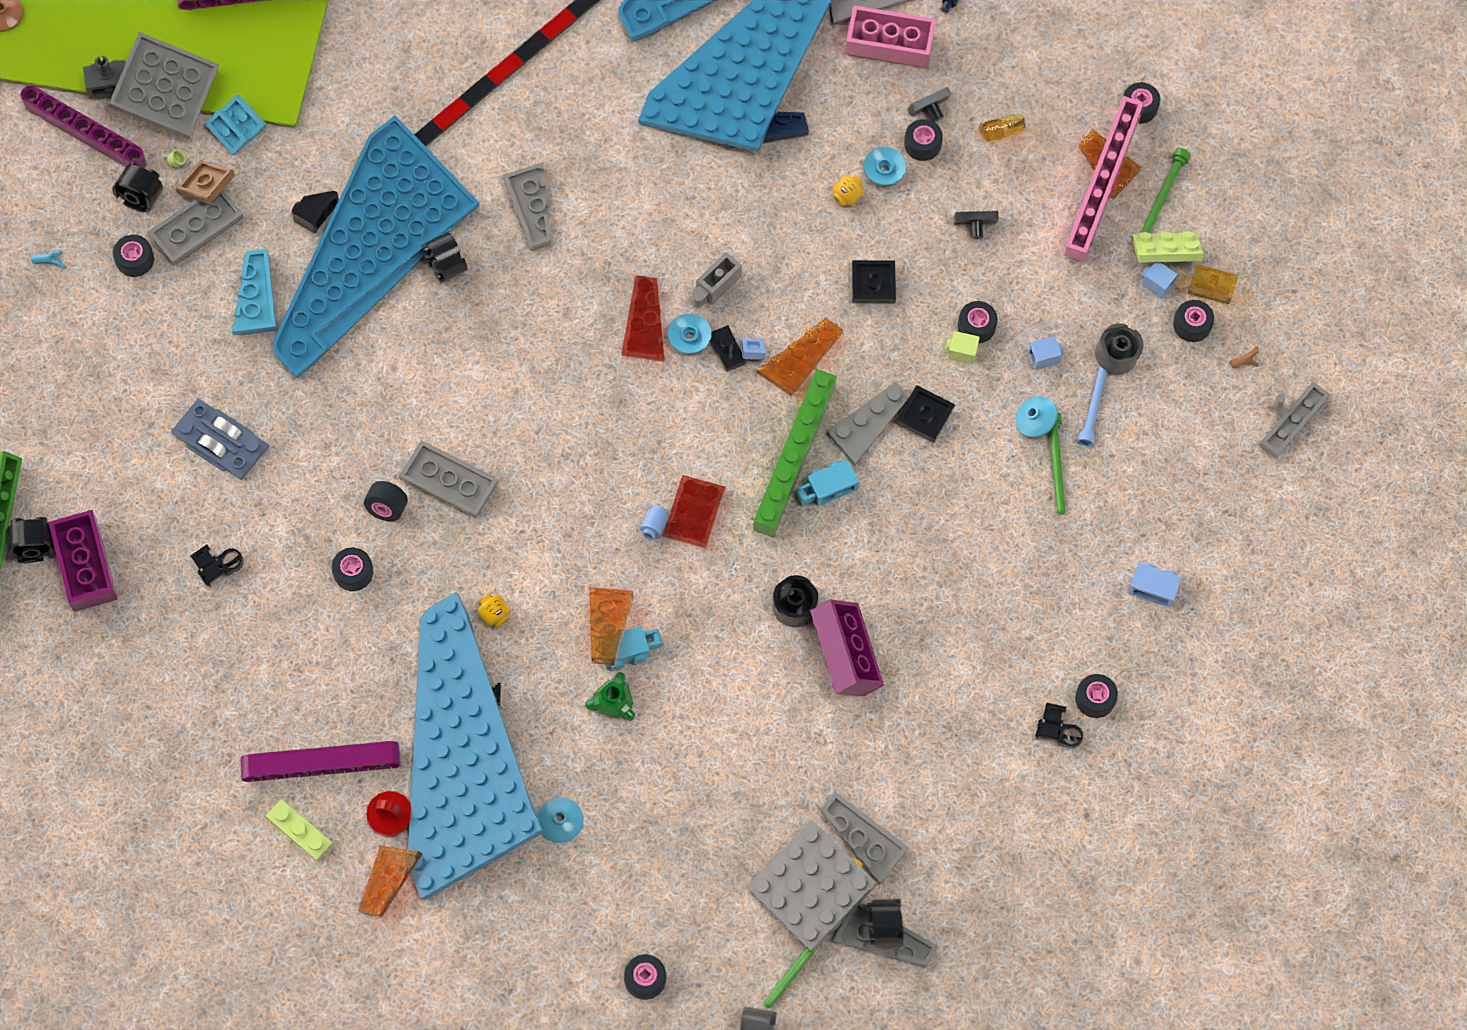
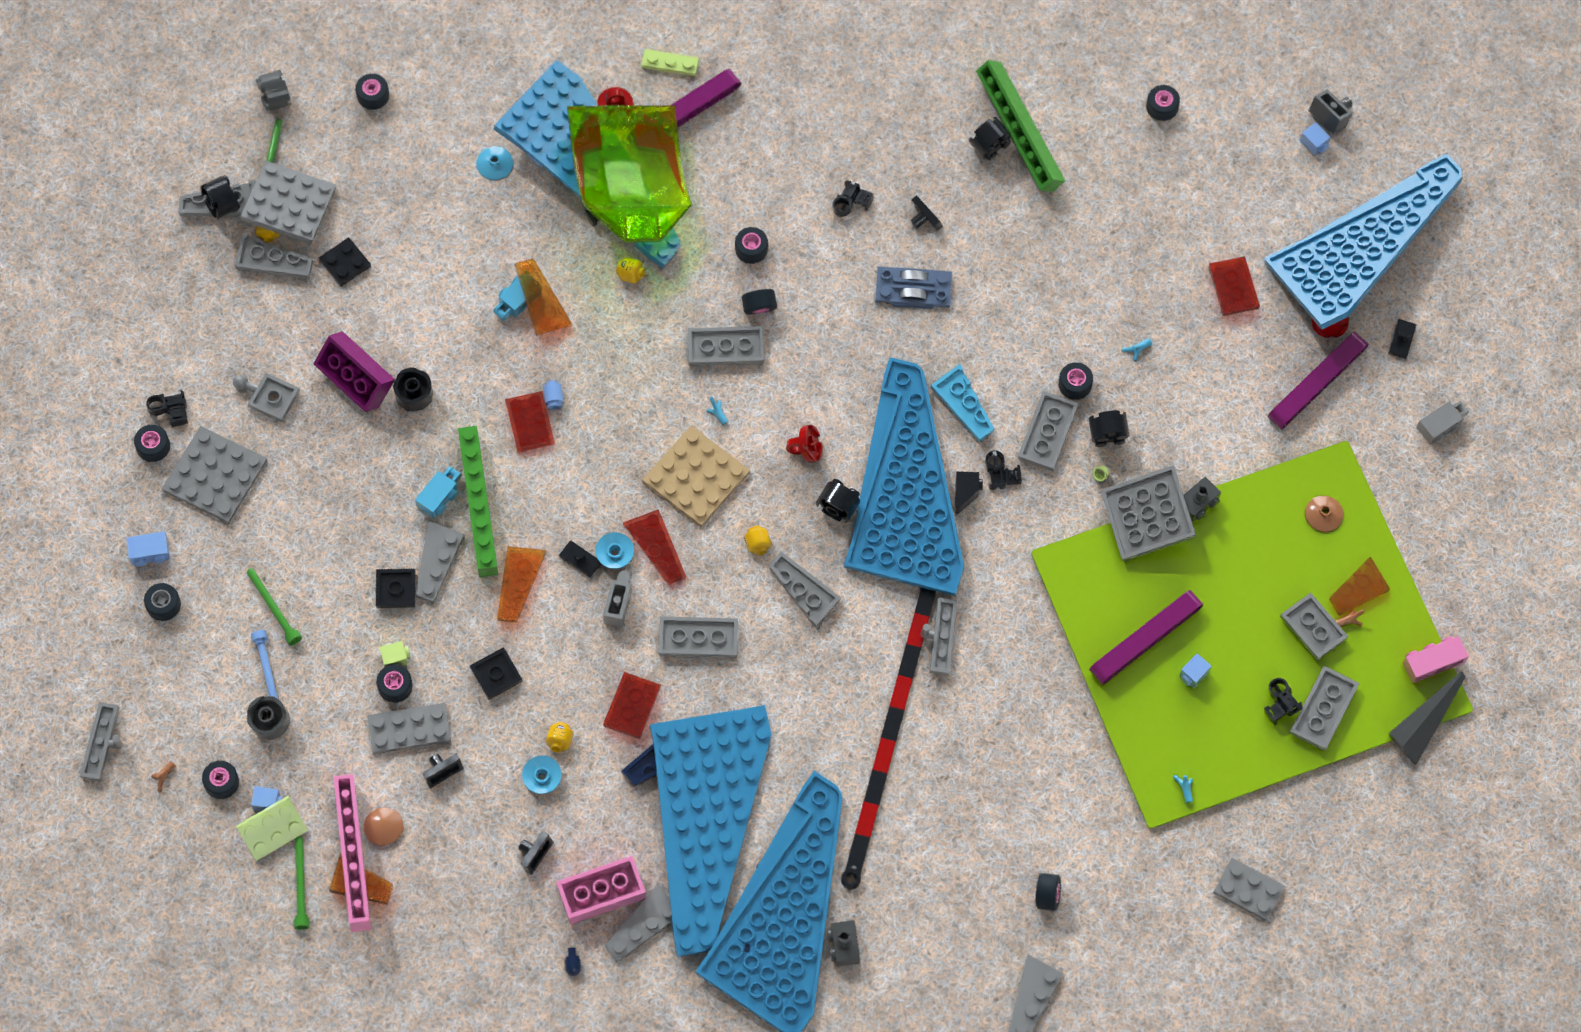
camera: 150 degrees right, 0 degrees up
(78, 121) = (1195, 451): magenta beam -> none
(82, 560) = (944, 146): magenta brick -> none
(155, 503) = (924, 215): none -> black tile
(205, 182) = (1063, 464): medium nougat tile -> none
(236, 124) = (1075, 524): medium azure slope -> none
(270, 211) = (1002, 476): none -> black piece
(387, 877) = (587, 60): clear orange wing -> none
(428, 698) = (629, 168): none -> clear neon green windscreen
(432, 92) = (941, 636): none -> light grey plate
(434, 328) = (806, 444): none -> red tile
(500, 418) = (717, 411): none -> medium azure bar
(545, 271) = (757, 540): none -> yellow head
(563, 367) = (696, 476): none -> tan plate
(613, 698) = (505, 257): green rock -> none
(660, 213) = (698, 637): none -> light grey plate
(753, 348) = (558, 566): light blue plate -> none
(762, 185) = (632, 705): none -> clear red plate
(786, 792) = (344, 262): none -> black plate
(930, 136) = (525, 809): black wheel -> none
(943, 693) = (268, 386): none -> light grey plate
(985, 277) = (409, 728): none -> light grey plate
(1002, 127) = (464, 864): clear yellow arm -> none
(1041, 422) = (302, 635): medium azure dish -> none
(1045, 352) = (326, 687): light blue brick -> none
(1046, 631) = (214, 474): none -> light grey plate
(1058, 202) = (383, 826): none -> nougat dish
(1150, 96) = (363, 958): black wheel -> none
(1173, 518) = (159, 595): none -> black wheel
(1212, 284) = (218, 815): clear yellow brick -> none

